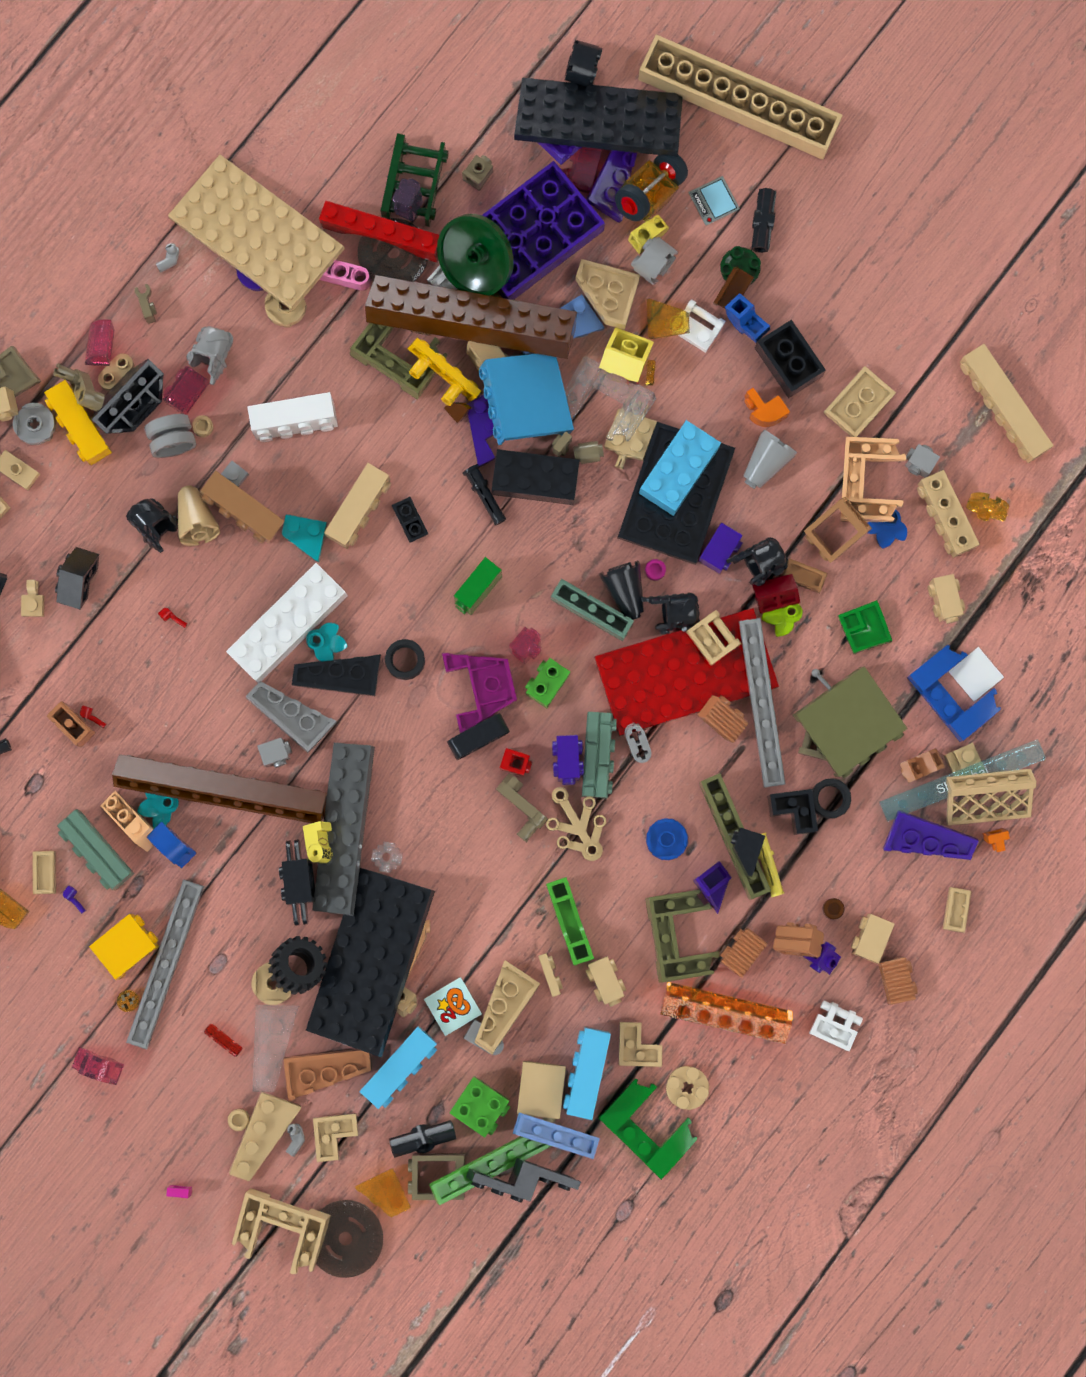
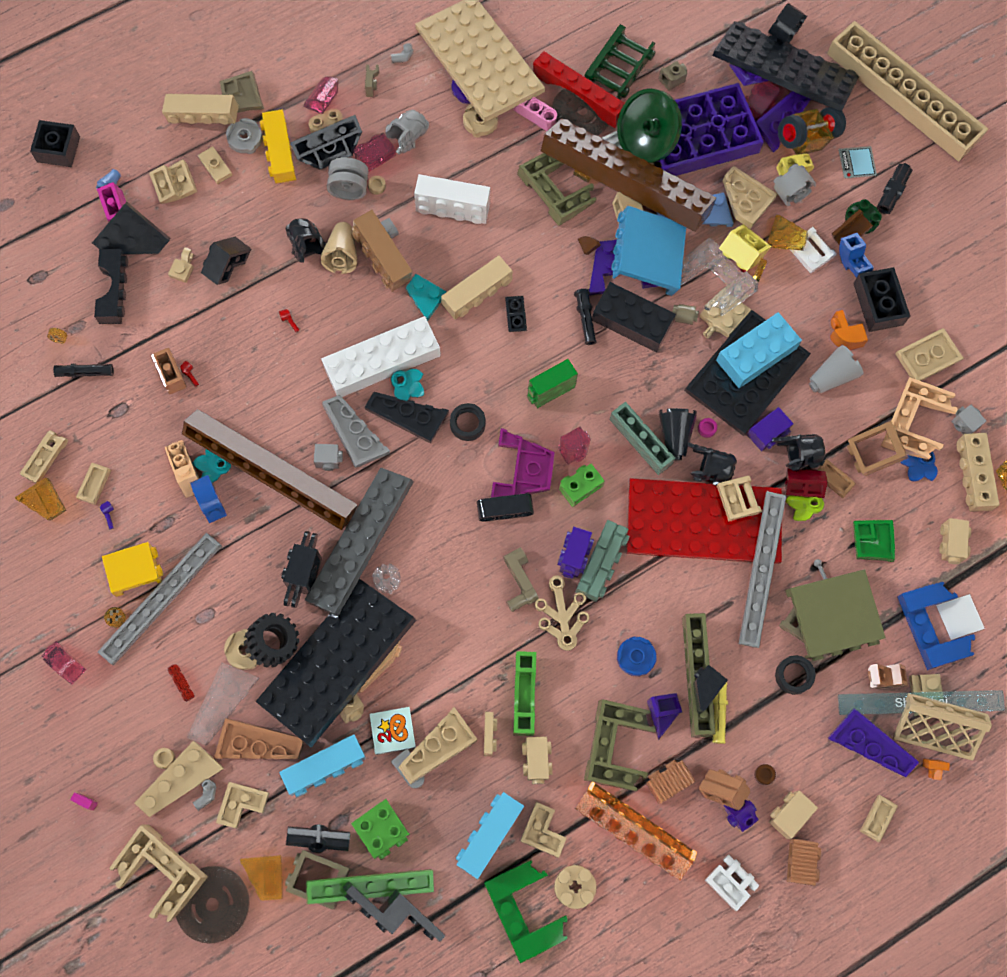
camera: 20 degrees right, 10 degrees down
(81, 386) = (294, 118): dark tan beam -> none
(95, 849) = (143, 479): sand green brick -> none
(317, 841) = (332, 541): light yellow leg -> none
(408, 199) = (610, 69): clear purple brick -> none
(449, 373) = (586, 200): yellow plate -> none
(508, 759) = (525, 534): red brick -> none
(541, 1090) = (441, 837): tan brick -> none
(556, 1135) = (439, 883): medium blue plate -> none
(561, 444) = (665, 296): dark tan plate -> none
(642, 741) = (636, 563): light grey beam -> none
(723, 718) = (723, 569): nougat brick -> none
(799, 805) = (765, 669): black brick -> none

